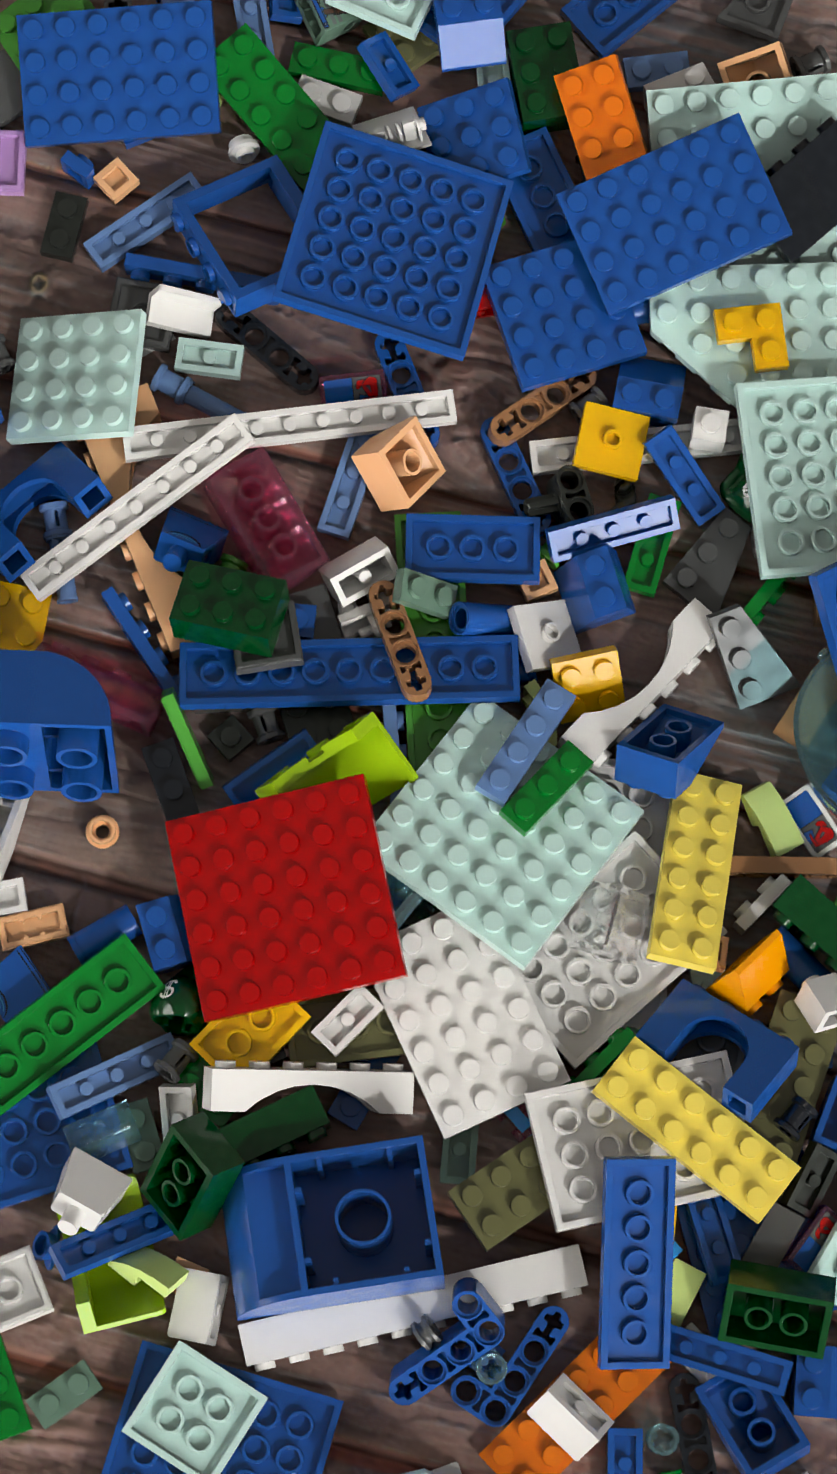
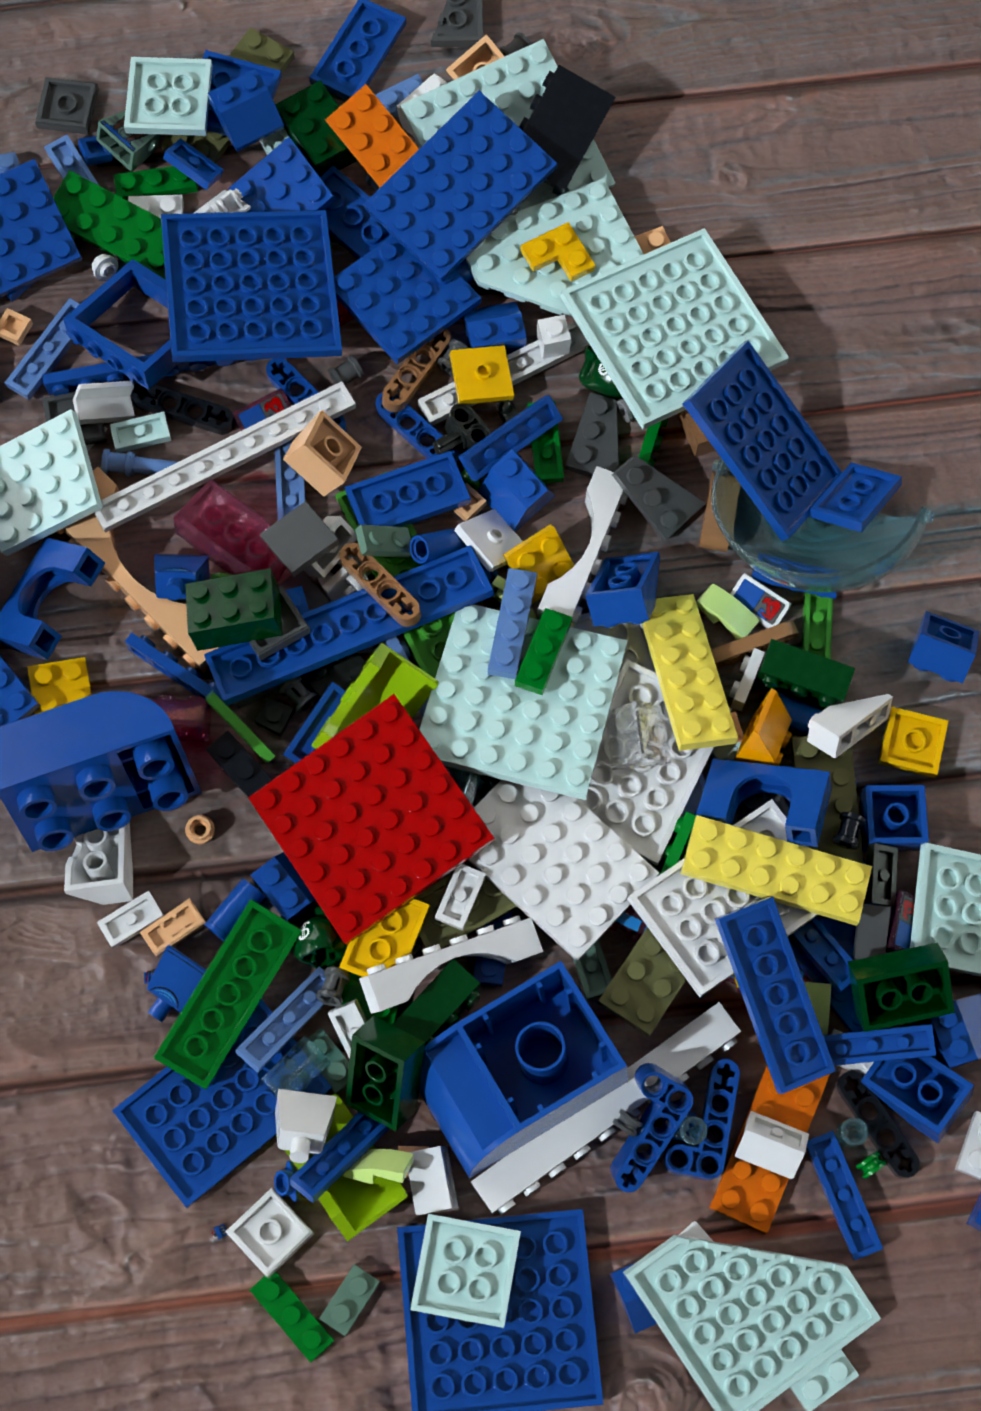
camera: 20 degrees left, 5 degrees down
(56, 531) = (73, 613): medium blue pin -> none
(137, 507) = (127, 562): white plate -> none
(332, 555) = (299, 539): none -> dark grey tile
(463, 377) = (346, 371): none -> dark grey bush
(684, 475) = (548, 379): blue plate -> none

